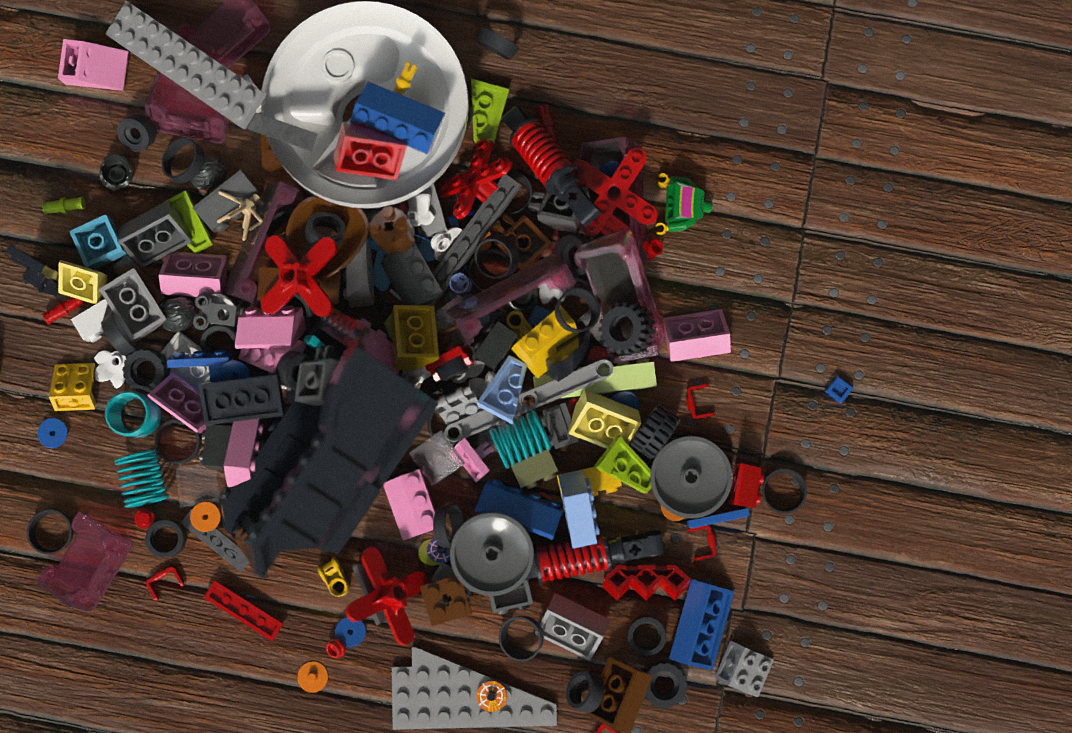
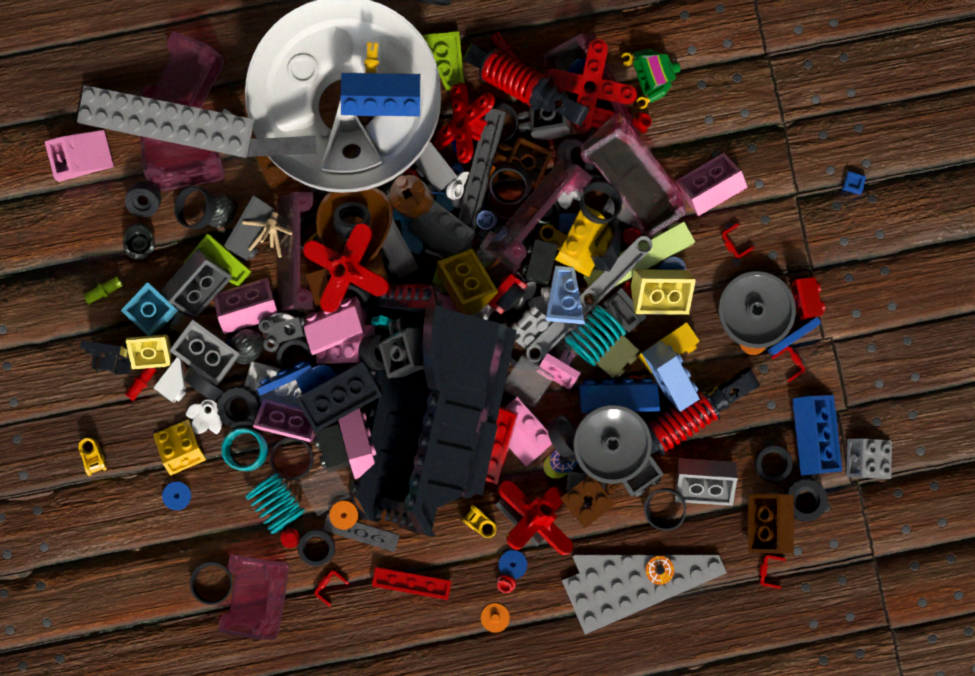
camera: 30 degrees left, 0 degrees up
(368, 152) = (367, 135): red slope -> none
(382, 509) = (506, 423): none -> red plate
(419, 210) = (425, 168): white plate -> none
(595, 692) = (750, 532): black tyre -> none
(612, 327) = (635, 201): black tyre -> none
(625, 466) = (696, 322): lime wing -> none
(646, 580) = (754, 415): red brick -> none
(655, 431) = (710, 281): black tyre -> none
(803, 488) = (860, 289): black tyre -> none

